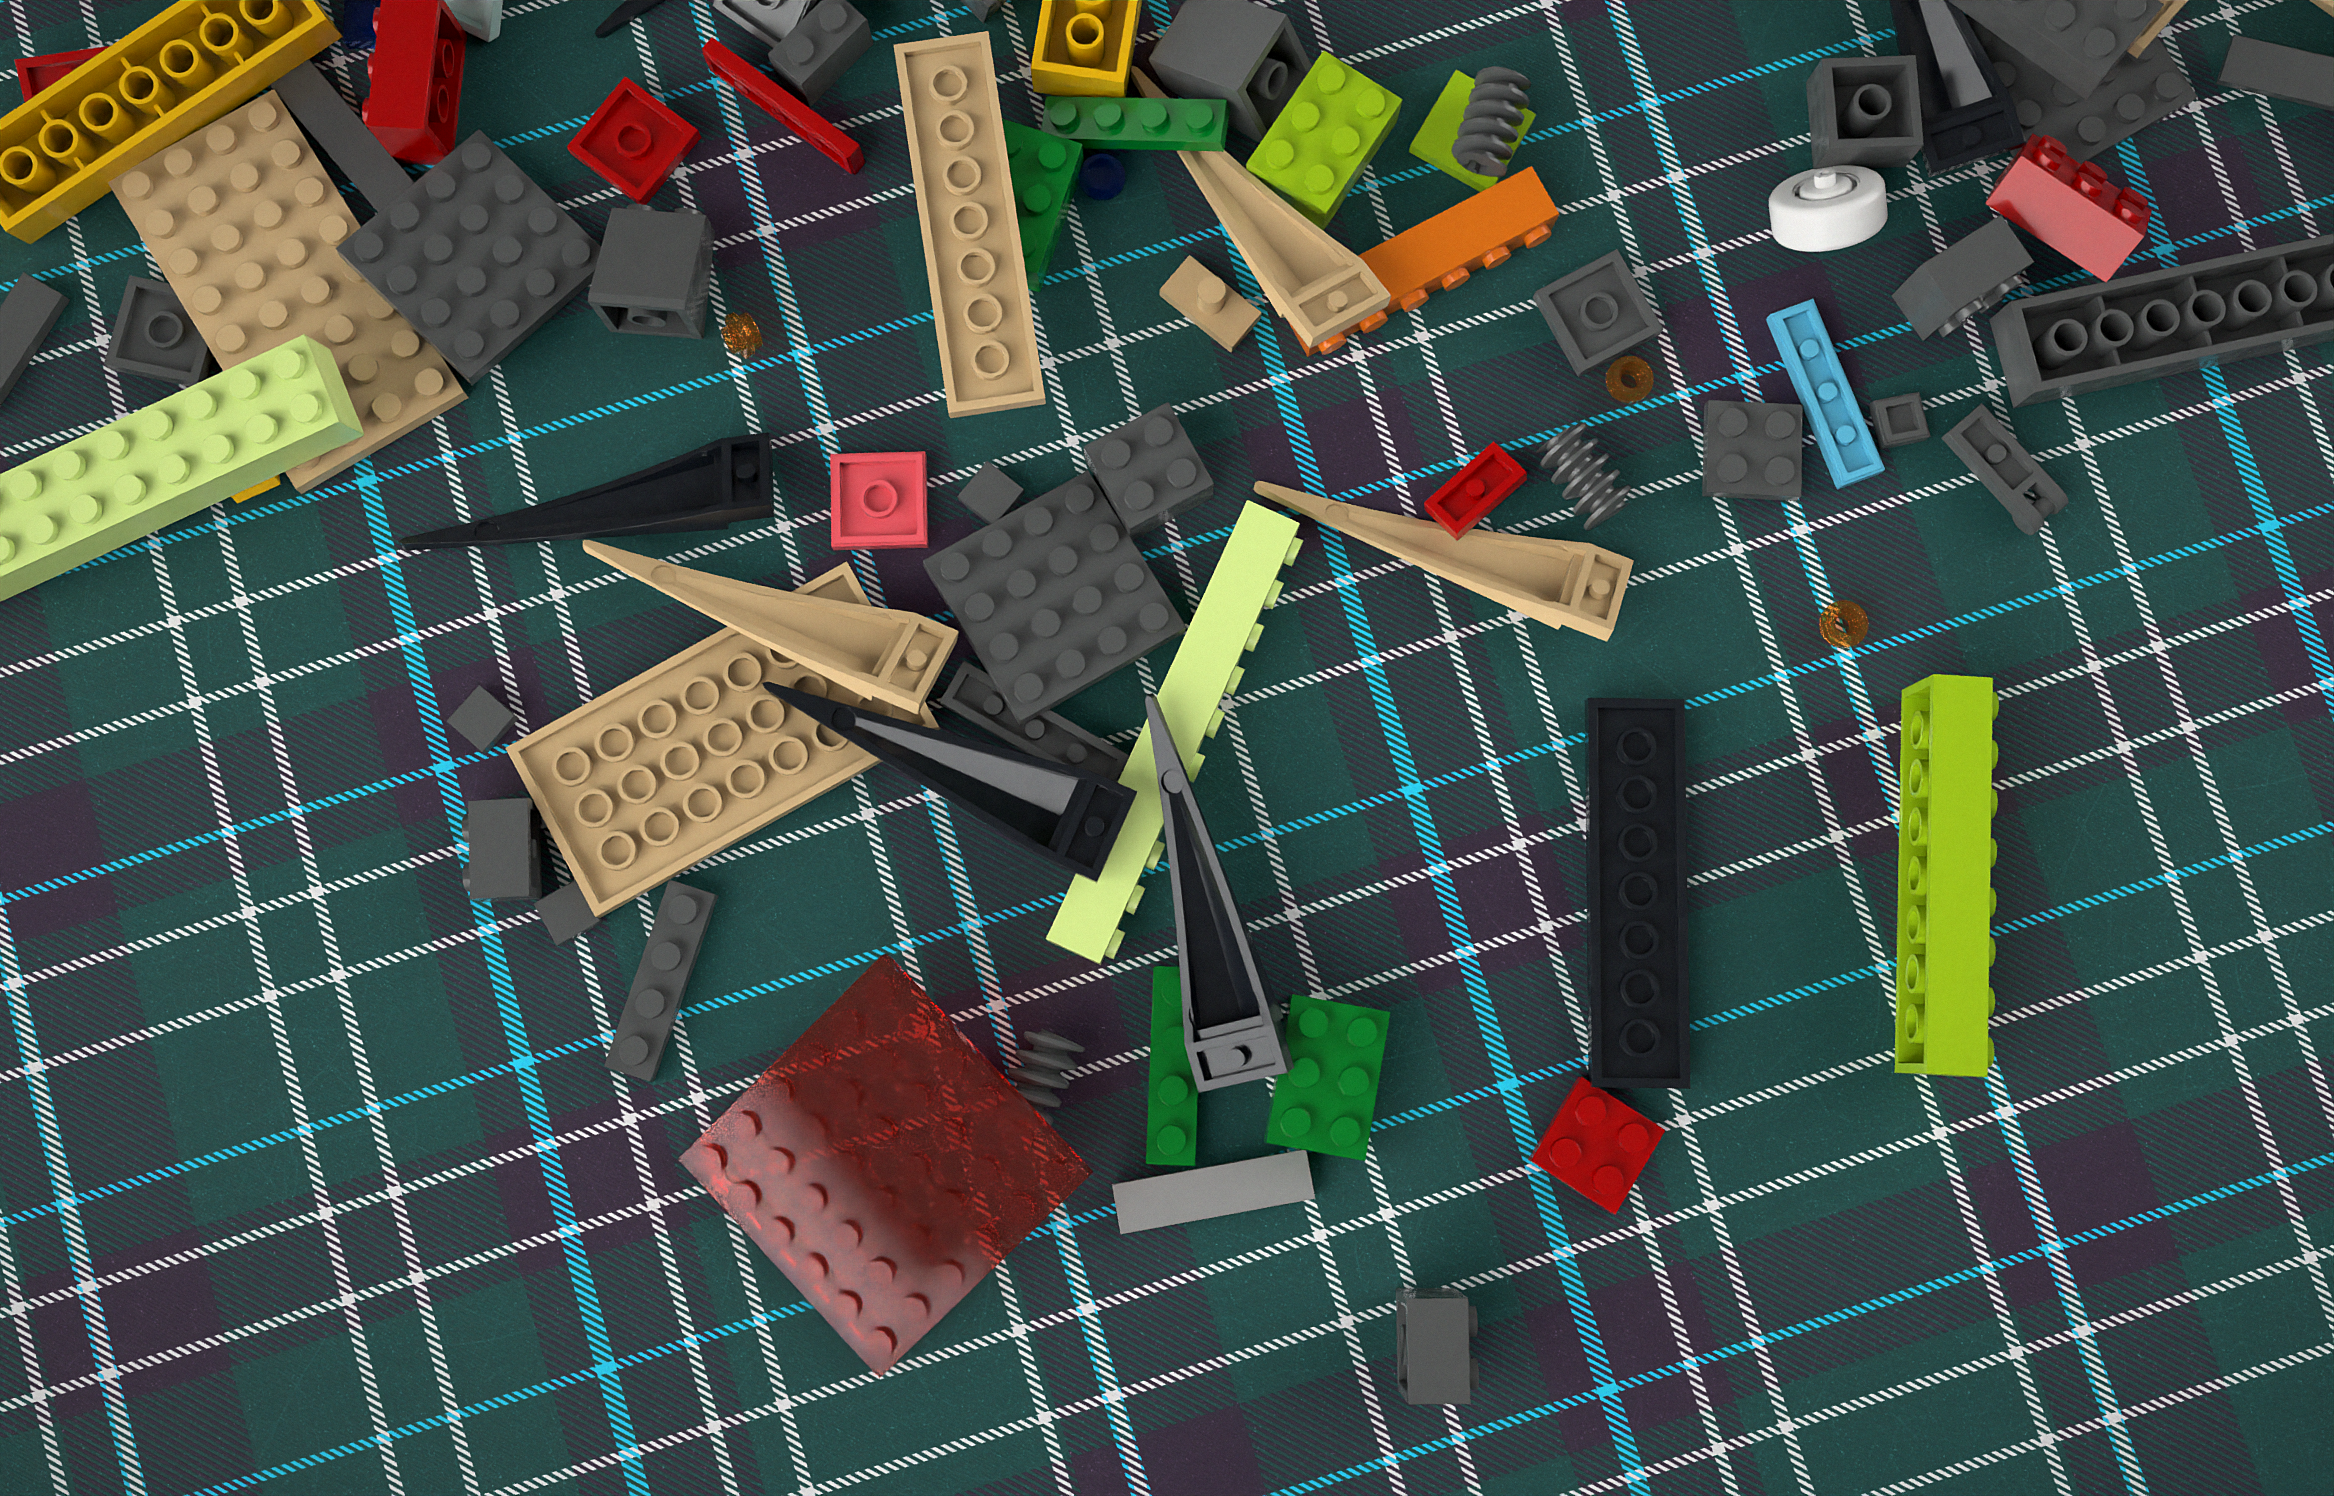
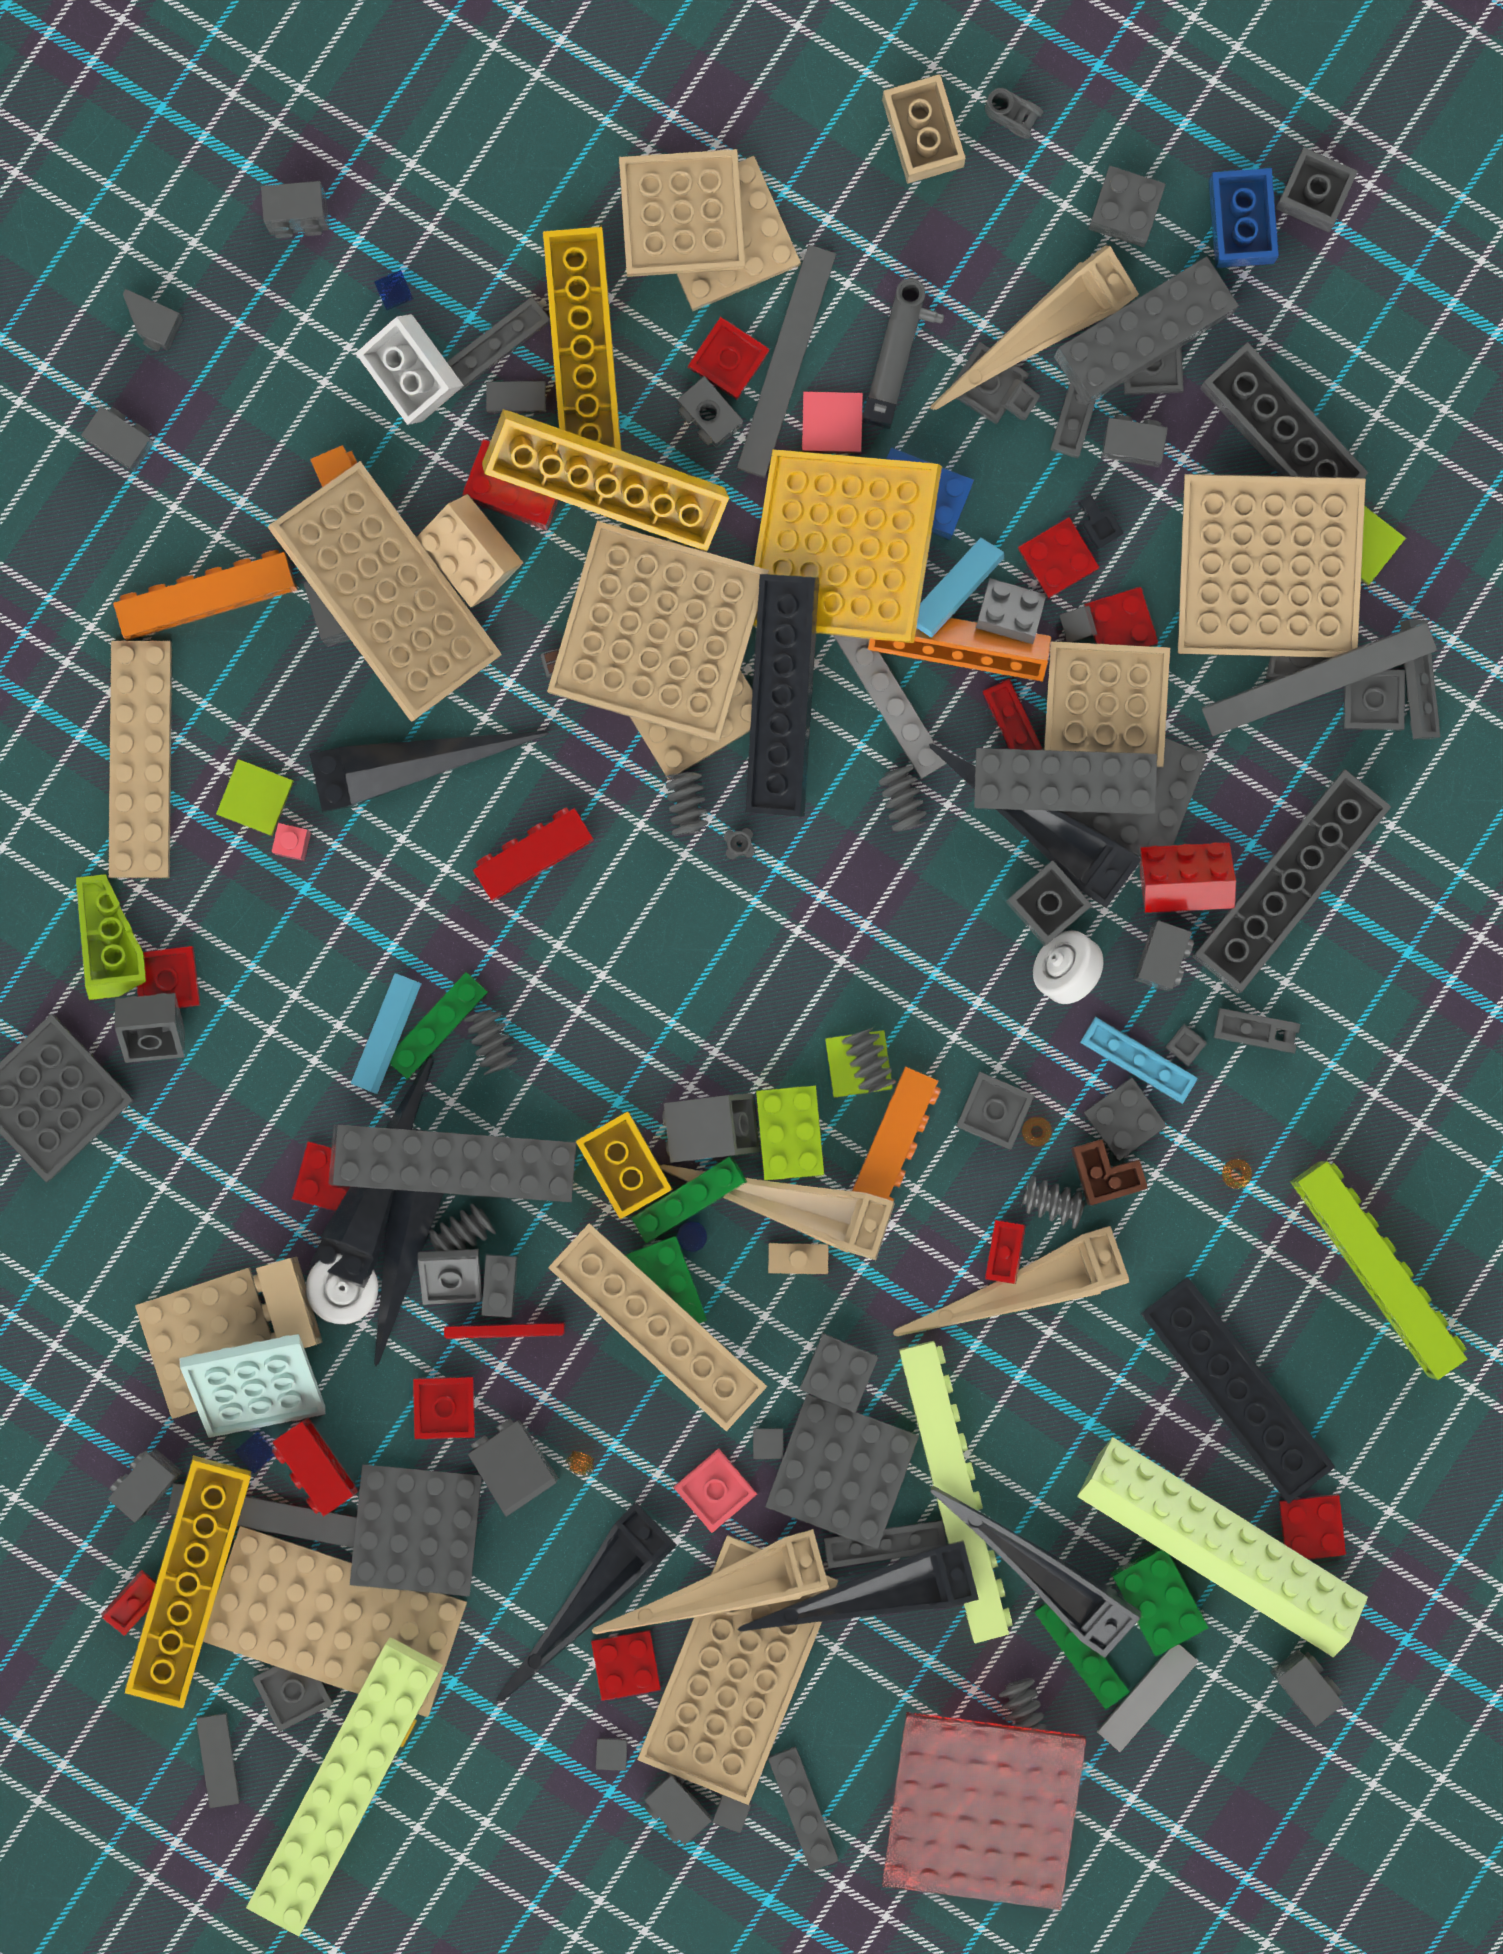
camera: 35 degrees left, 5 degrees up
(592, 624) = (625, 1665): none -> red plate
(1467, 1076) = (1223, 1547): none -> yellowish green brick
(1671, 496) = (1105, 1182): none -> copper brick

